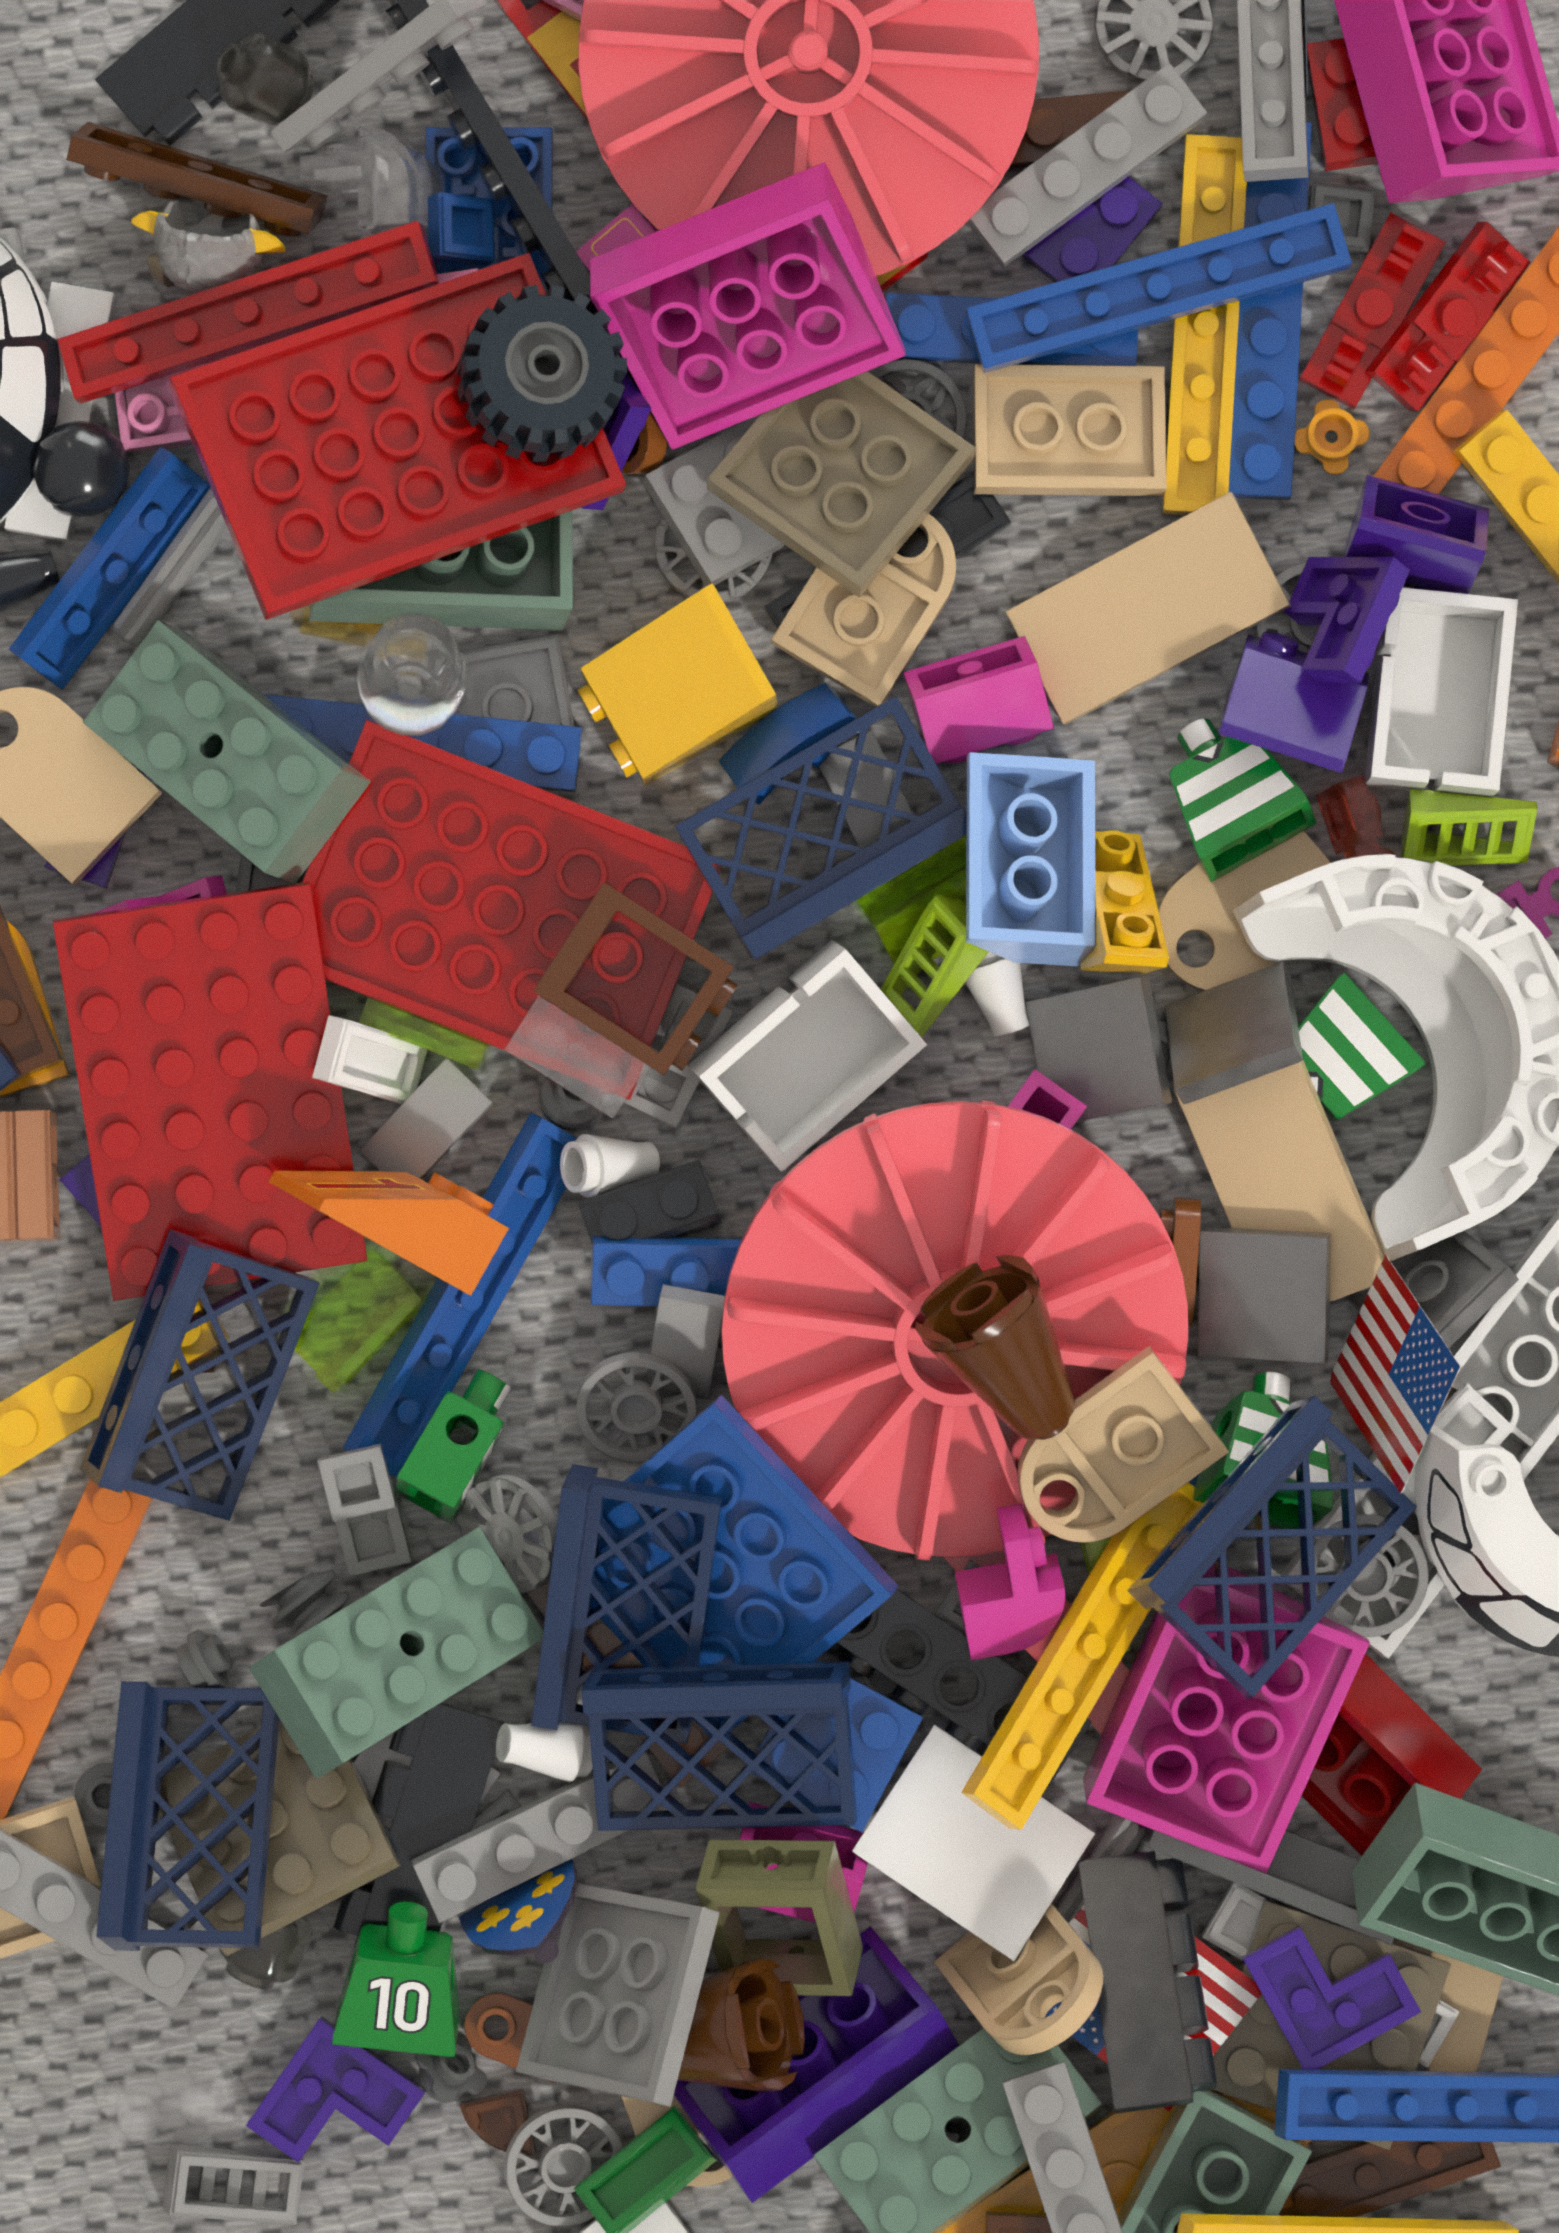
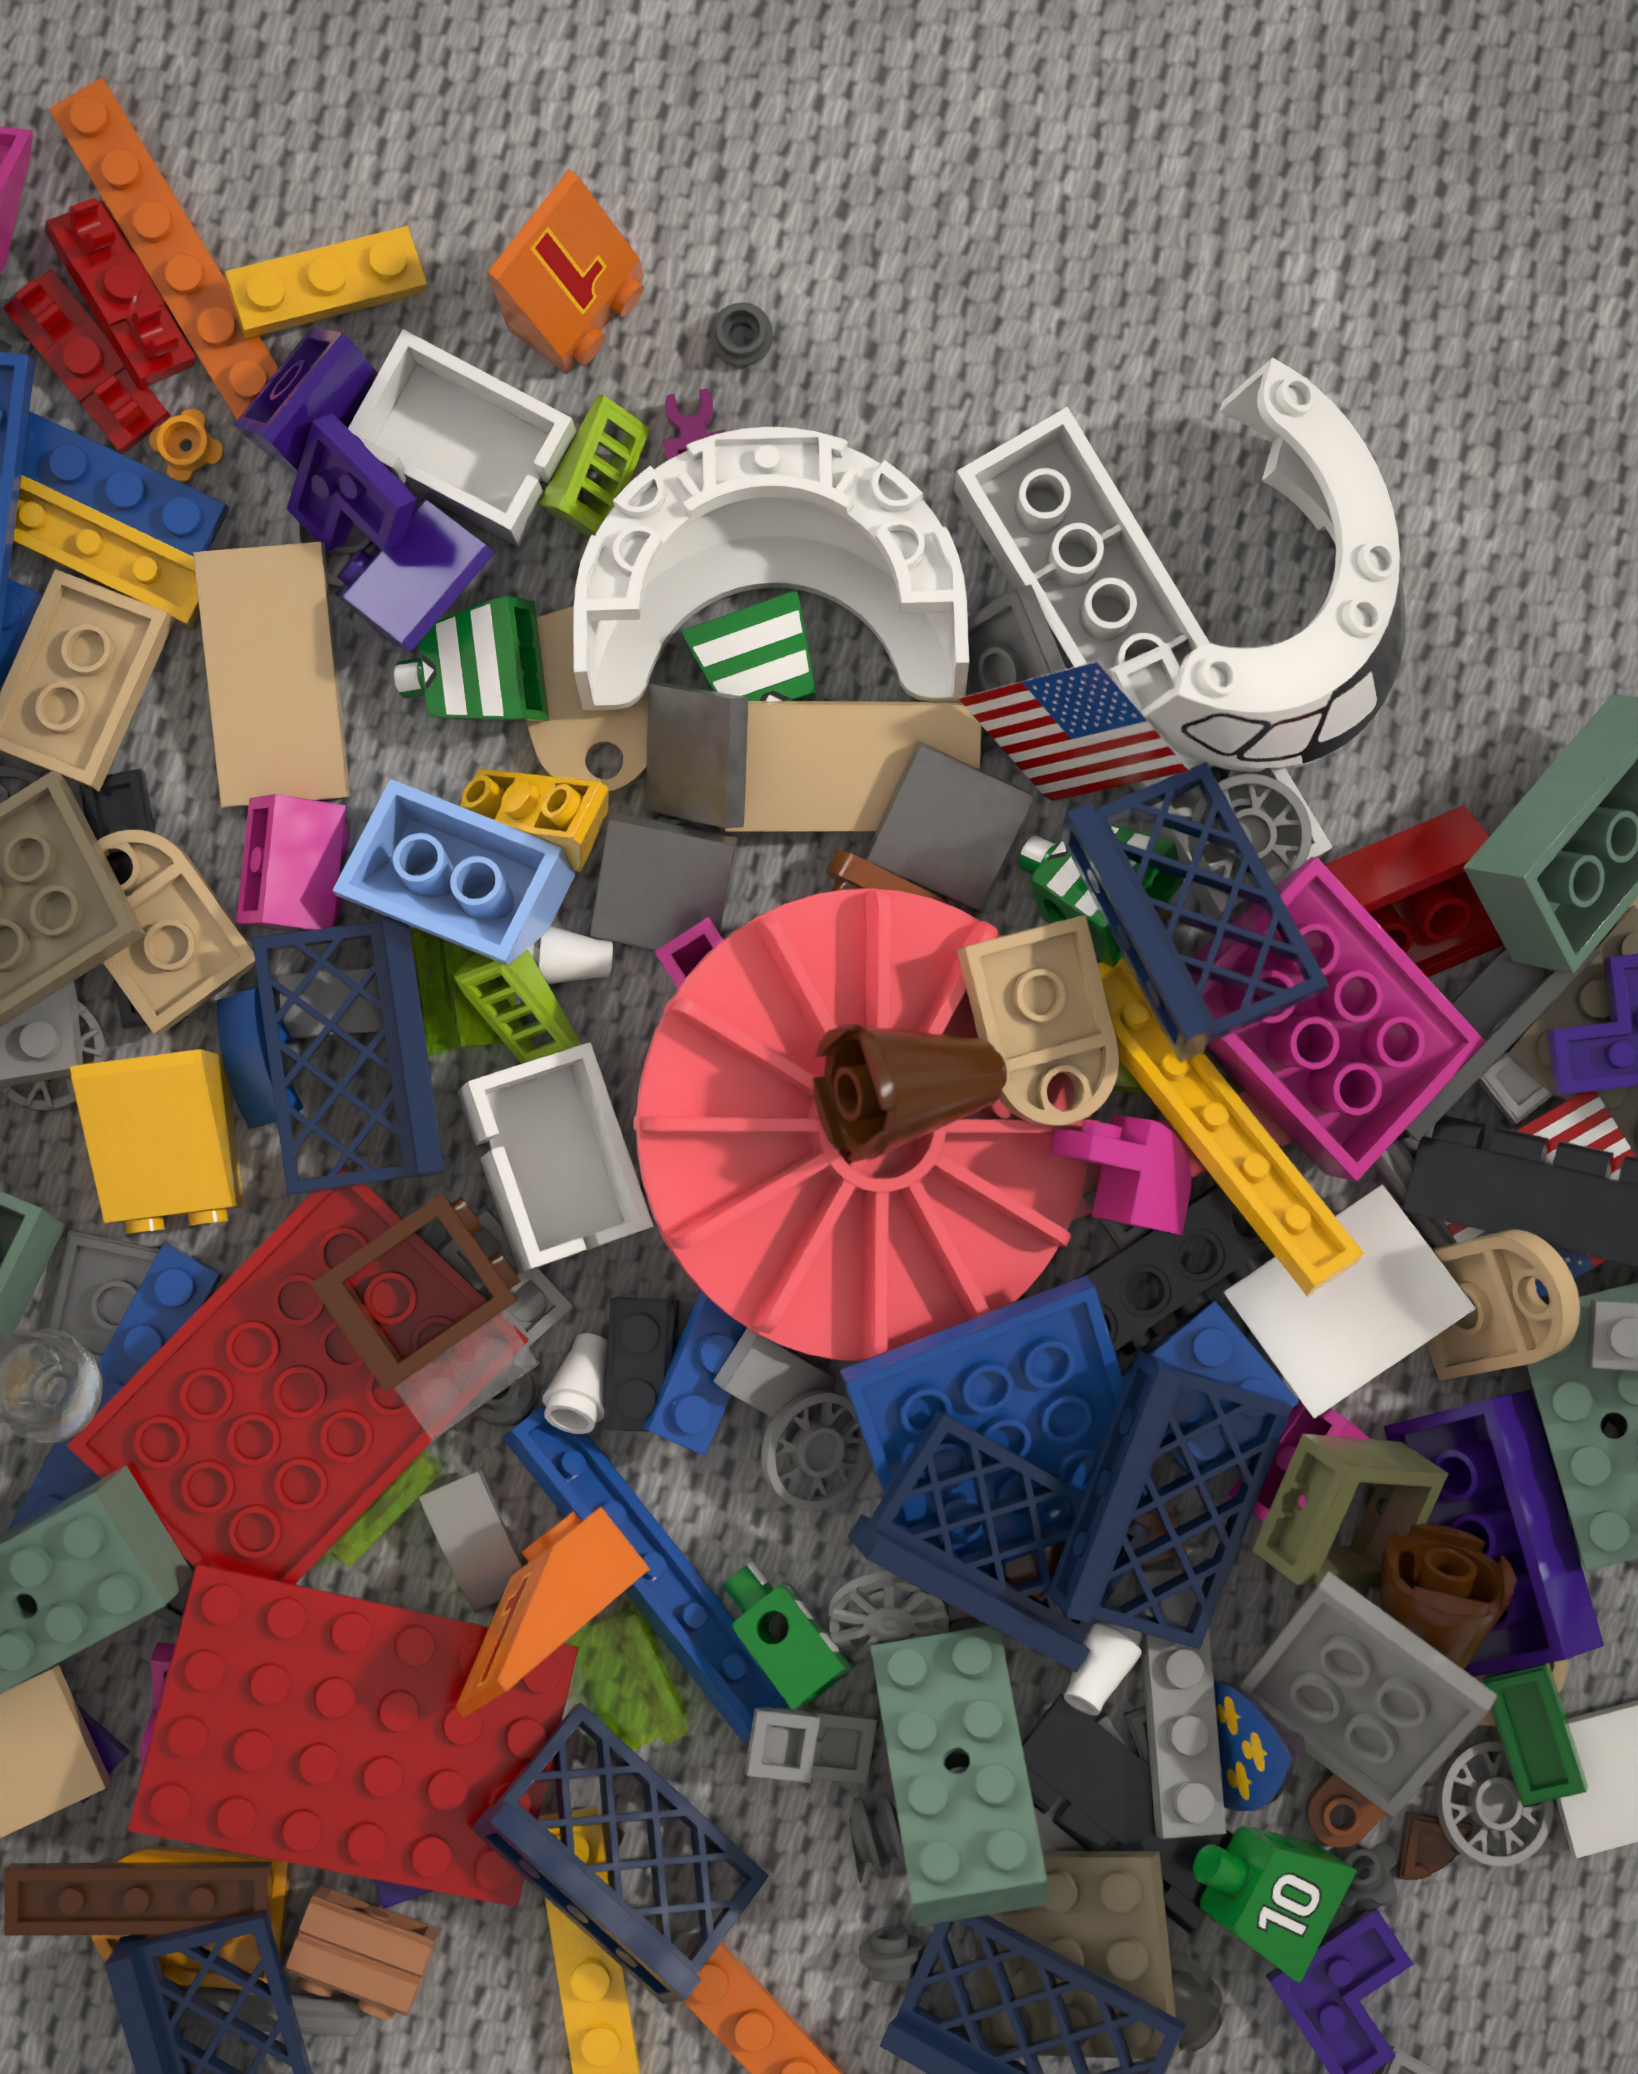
camera: 70 degrees left, 0 degrees up
(368, 1061) = (389, 1573): white tile -> none
(1352, 818) = (541, 568): clear red plate -> none

